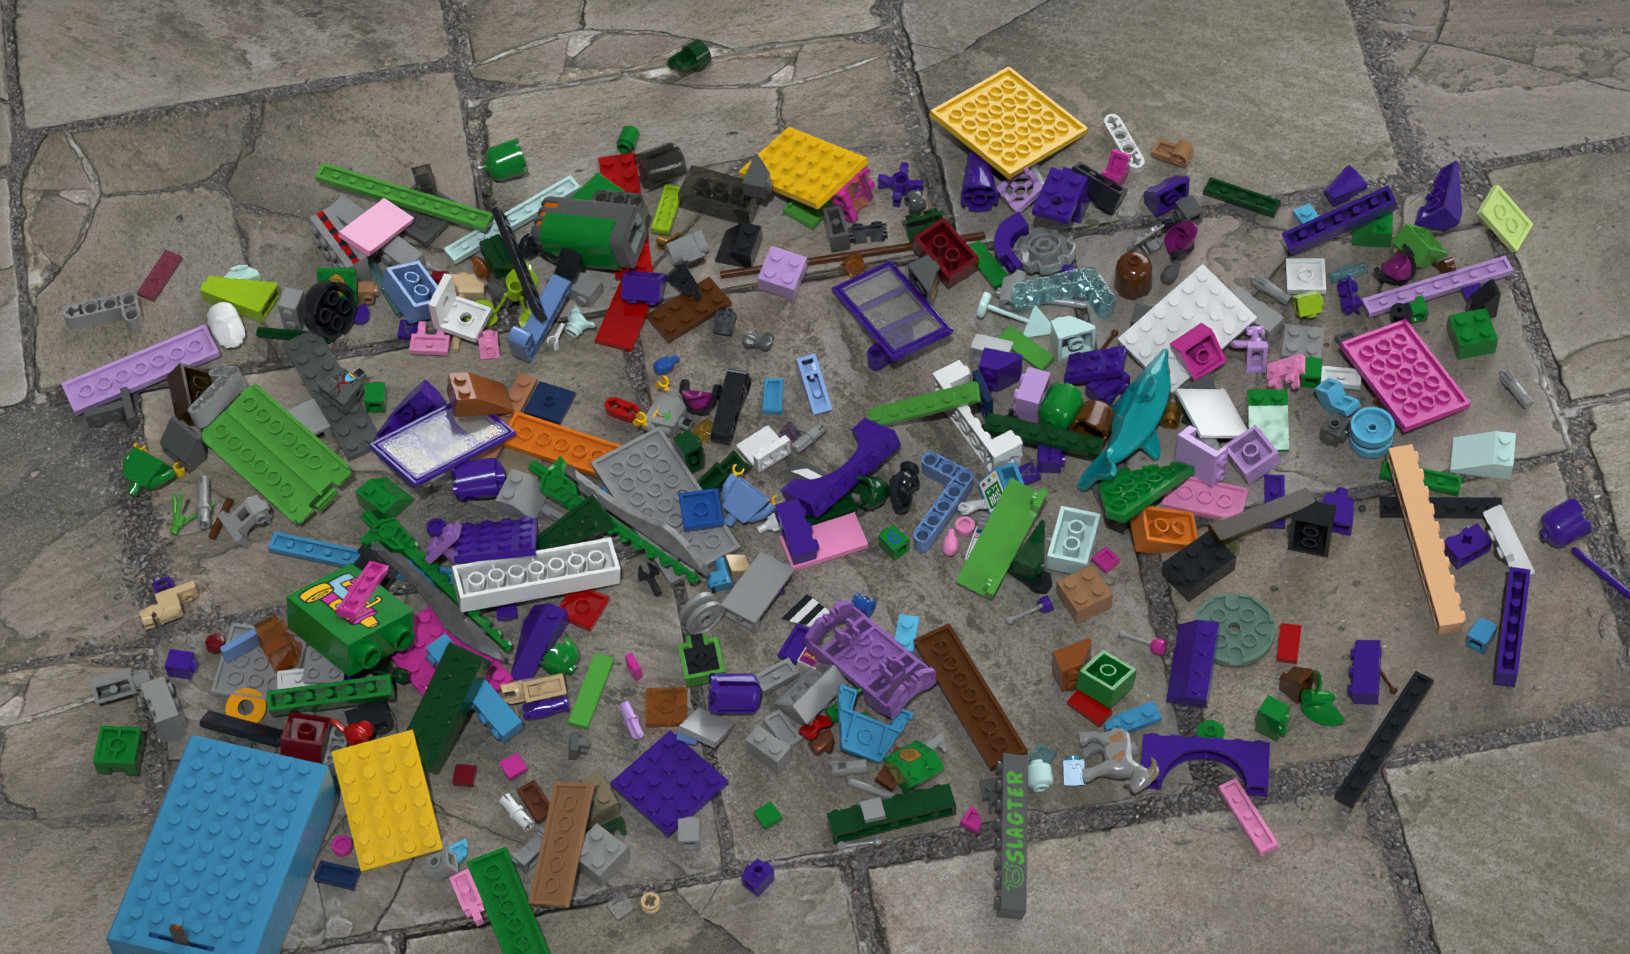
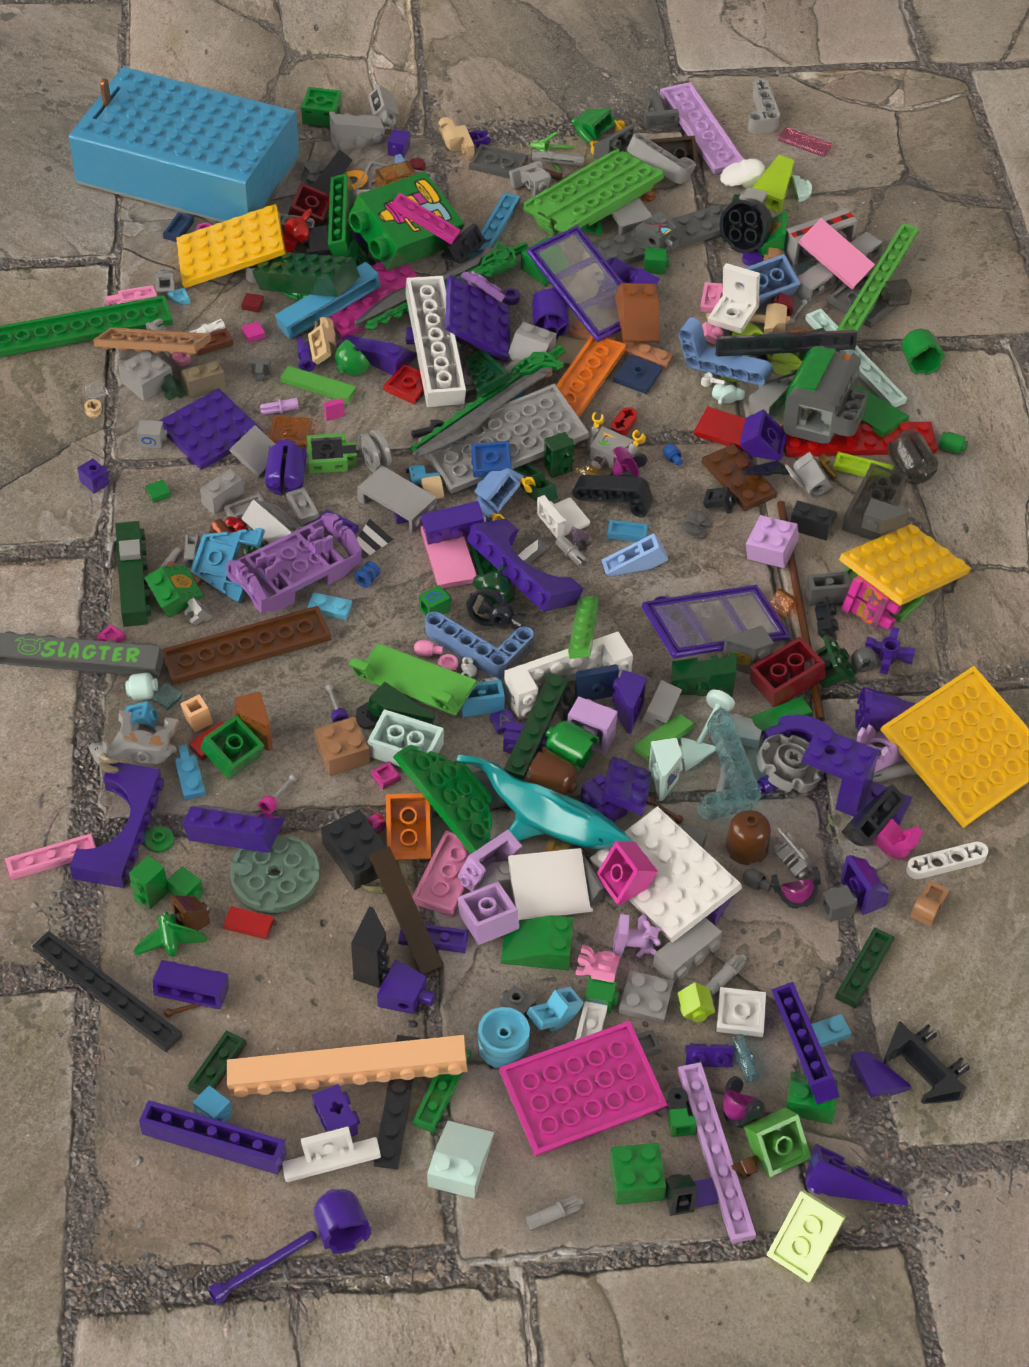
camera: 90 degrees right, 5 degrees down
(205, 562) = (496, 161): none -> dark grey tile
(957, 315) = (701, 676): none -> dark green wedge
(1069, 717) = (196, 713): none -> light nougat brick
(1163, 556) = (377, 822): none -> dark pink bush
(1261, 691) = (185, 884): none -> green brick
(1315, 164) = (942, 1079): none -> black hose
(1435, 643) = (215, 1065): none -> dark green tile

